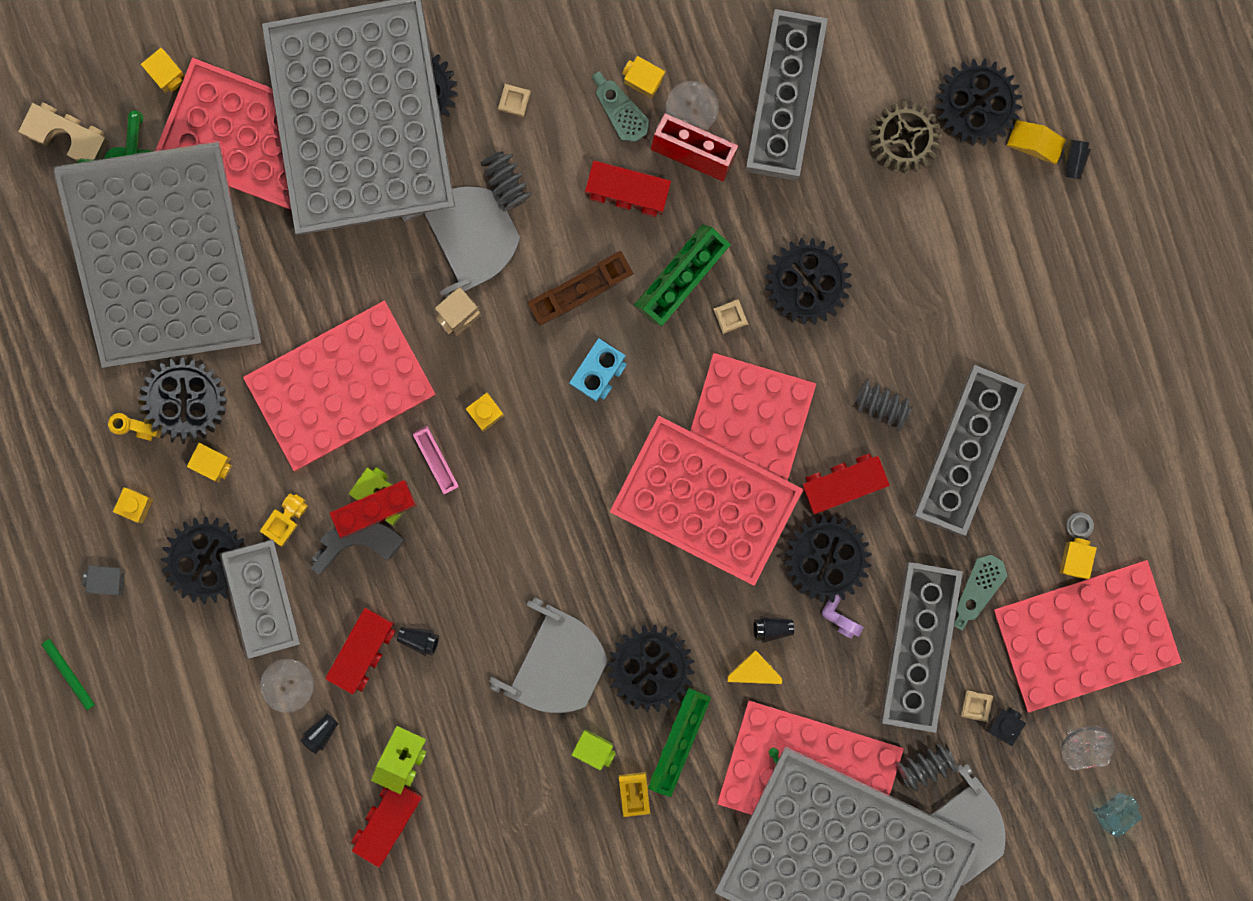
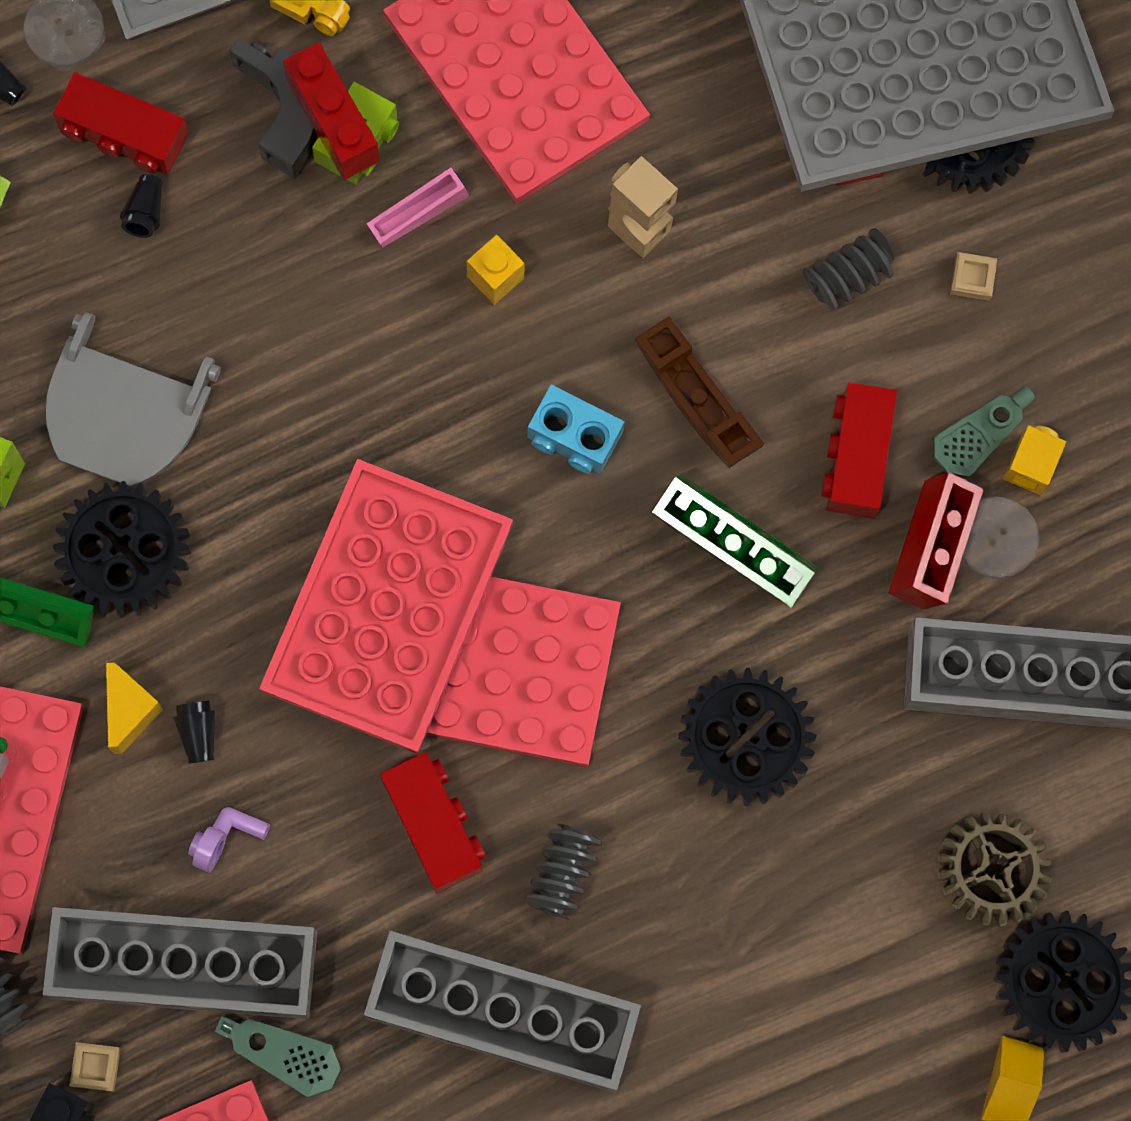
camera: 80 degrees right, 10 degrees down
(473, 236) = (761, 232): light grey piece -> none
(730, 316) = (679, 625): tan tile -> none
(850, 569) = (298, 842): black gear -> none

